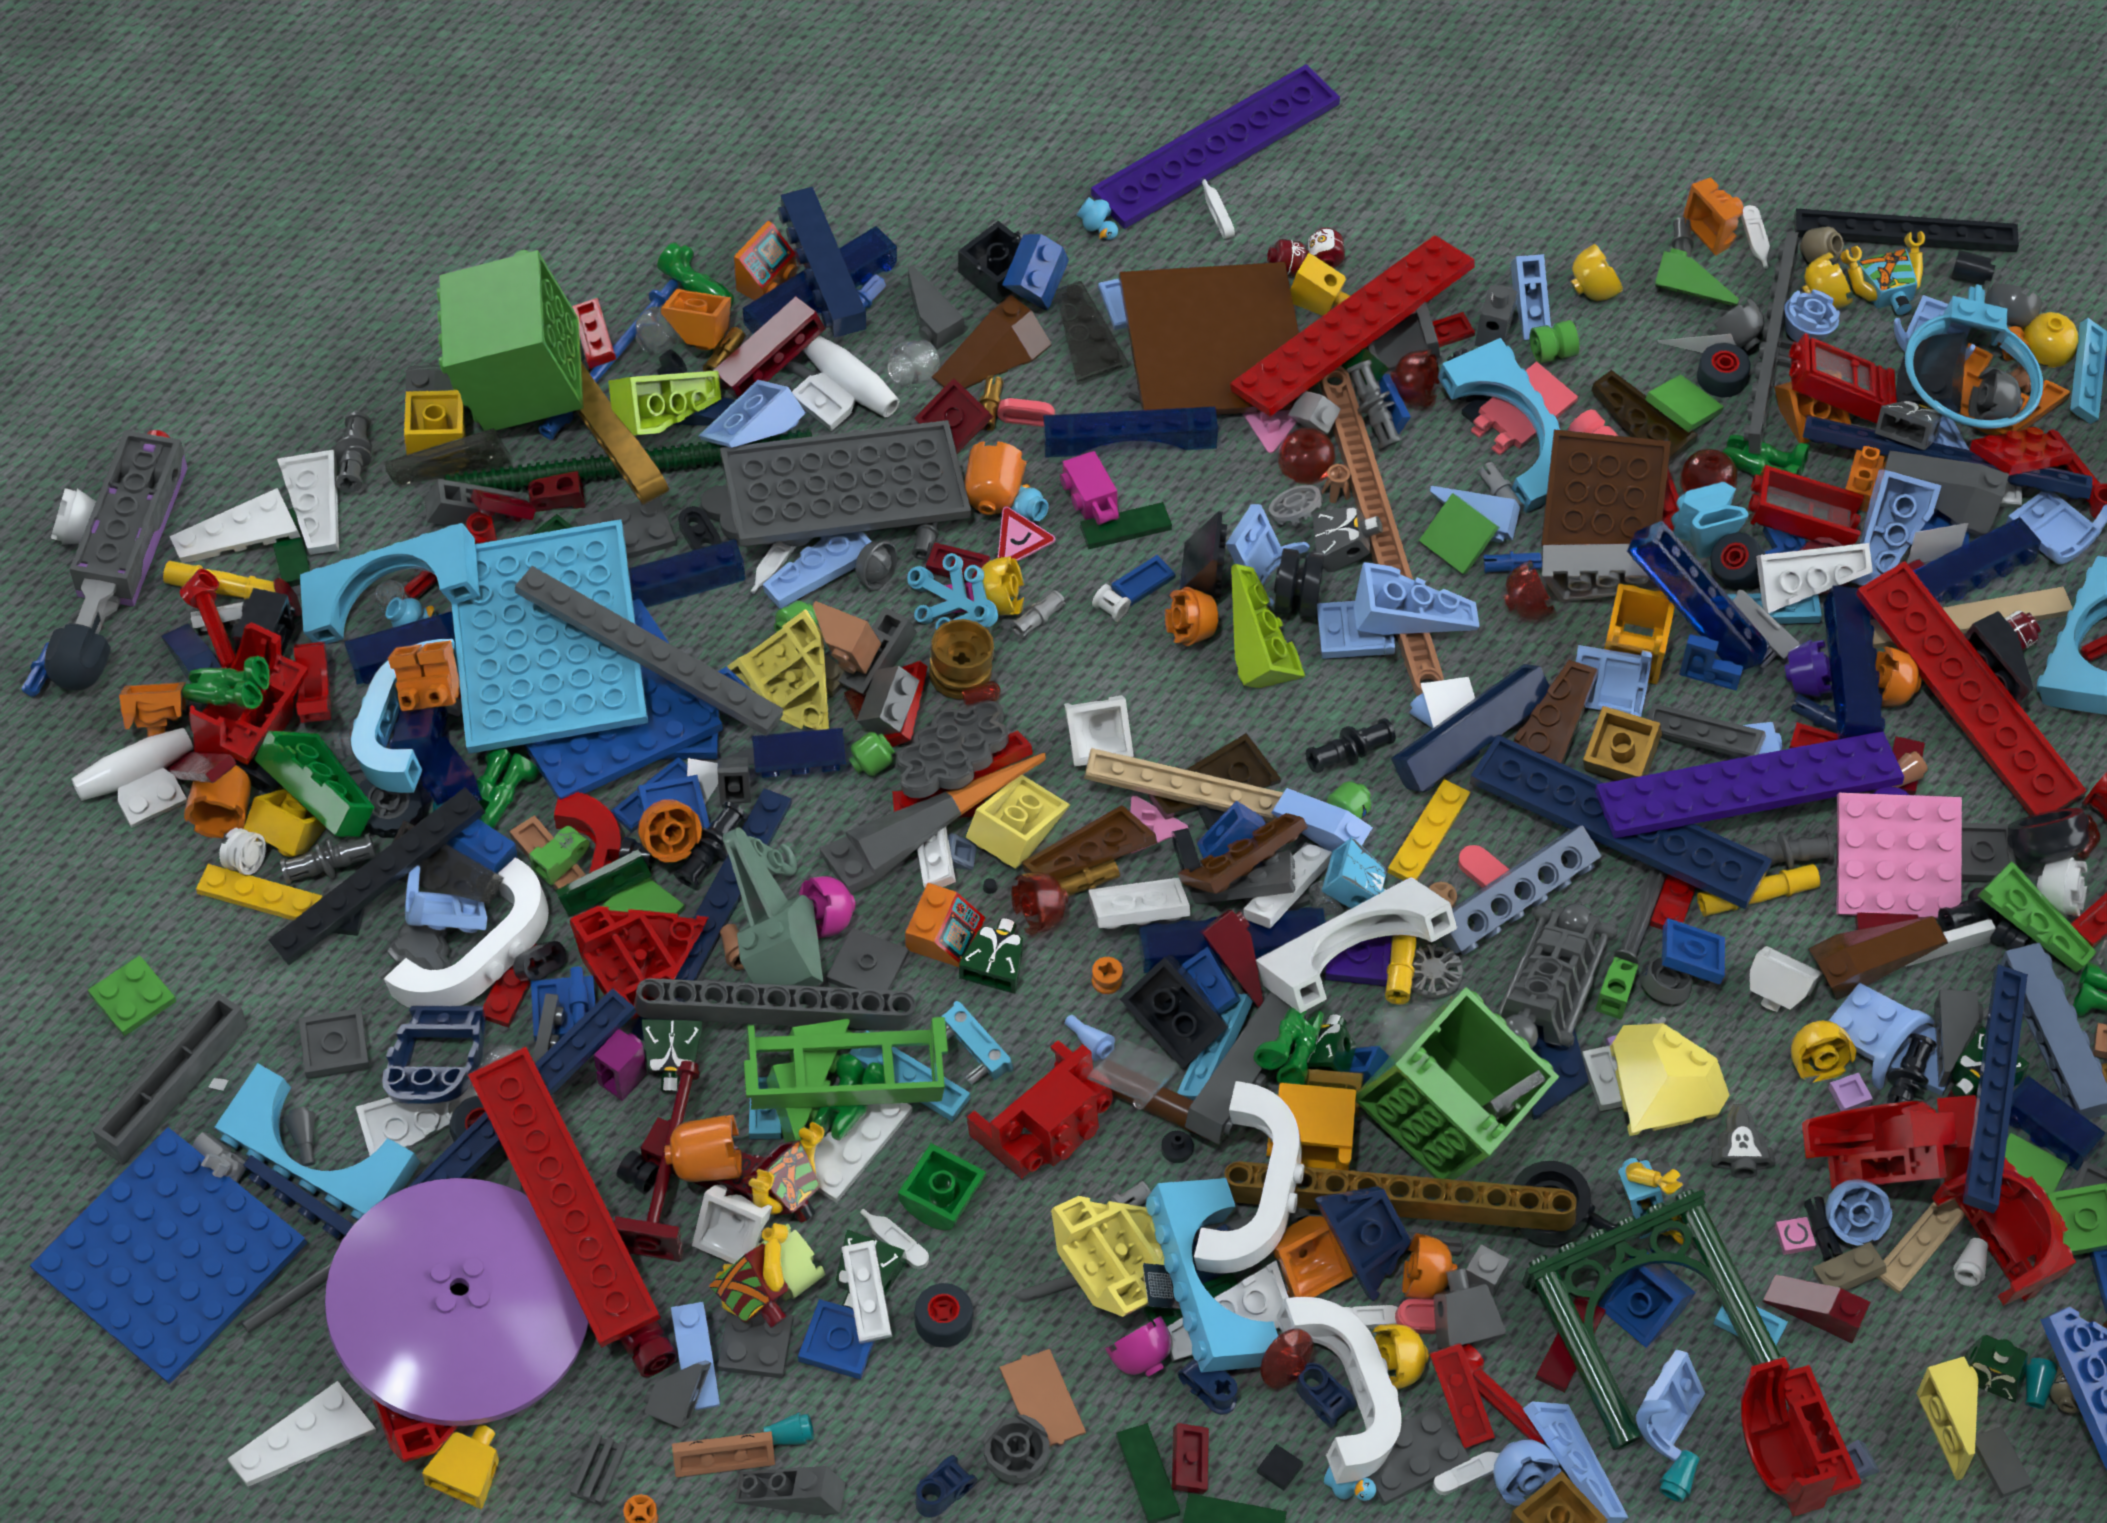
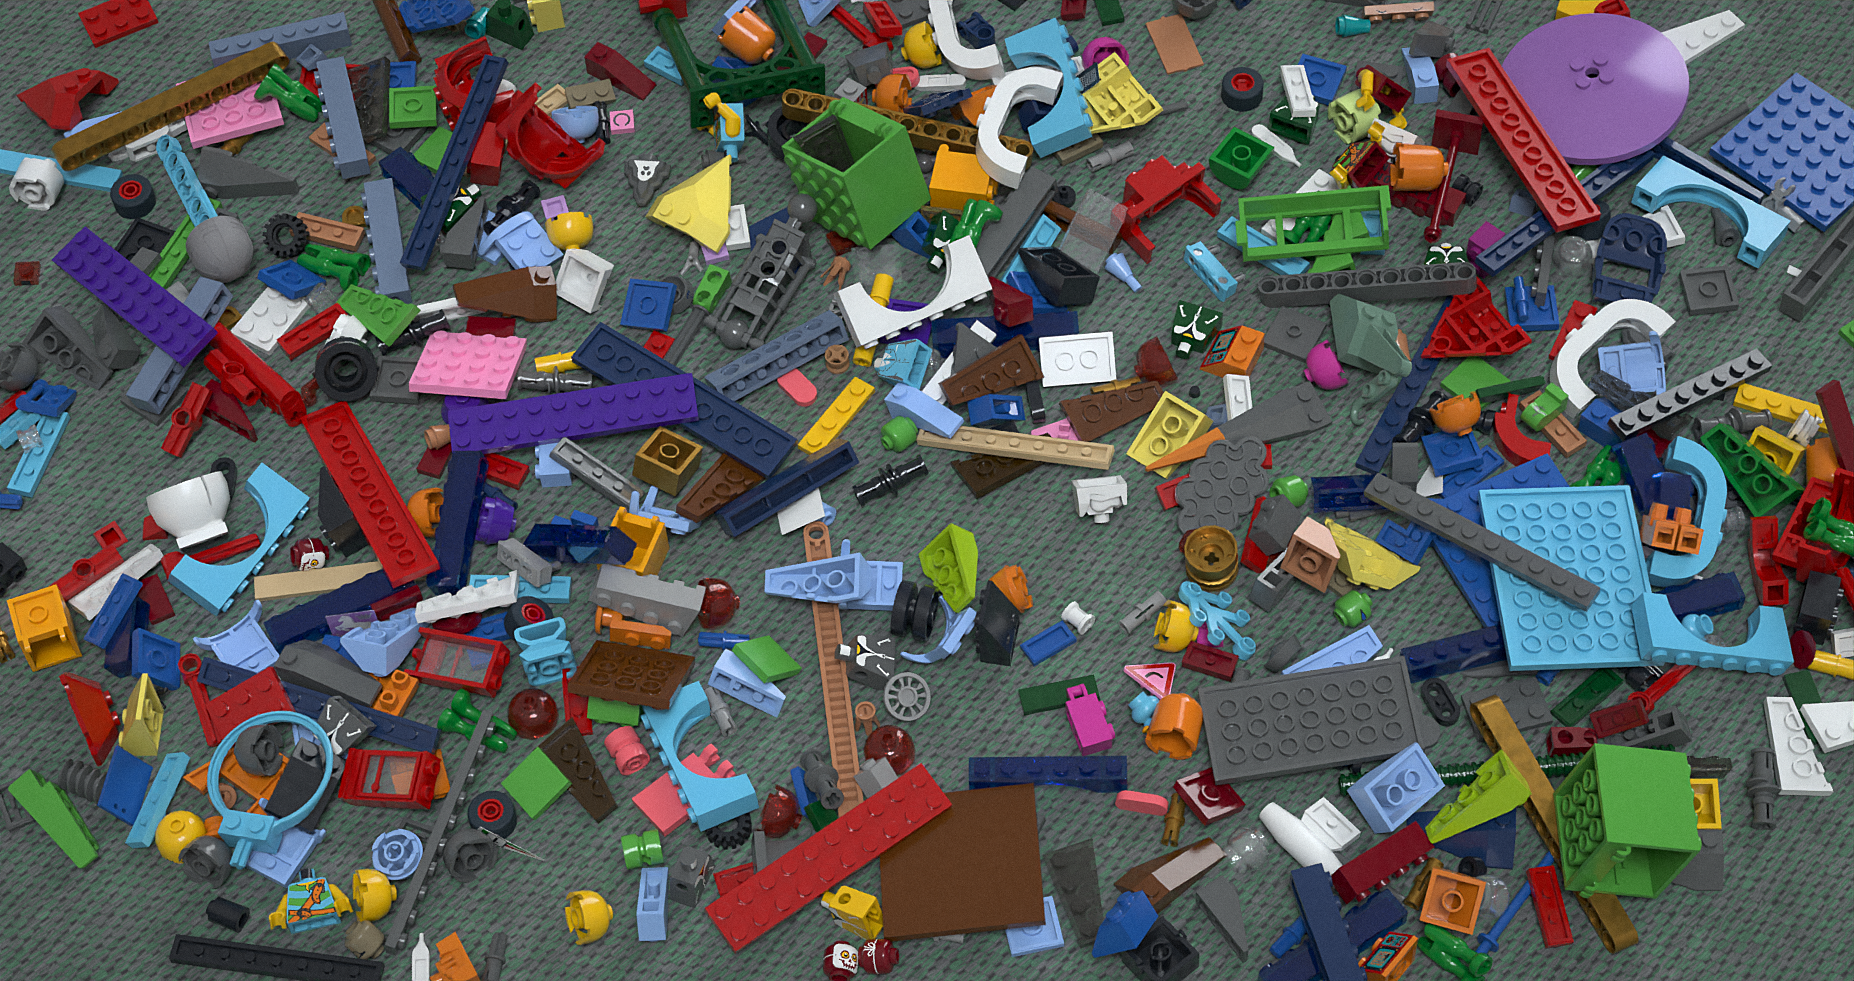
camera: 170 degrees left, 0 degrees up
(541, 966) = (1553, 336): black beam -> none
(1112, 980) = (1111, 318): orange wheel -> none
(1286, 1358) = (999, 35): clear red dish -> none
(1643, 1345) = (748, 37): none -> orange cylinder
(1687, 277) = (496, 907): bright green slope -> none

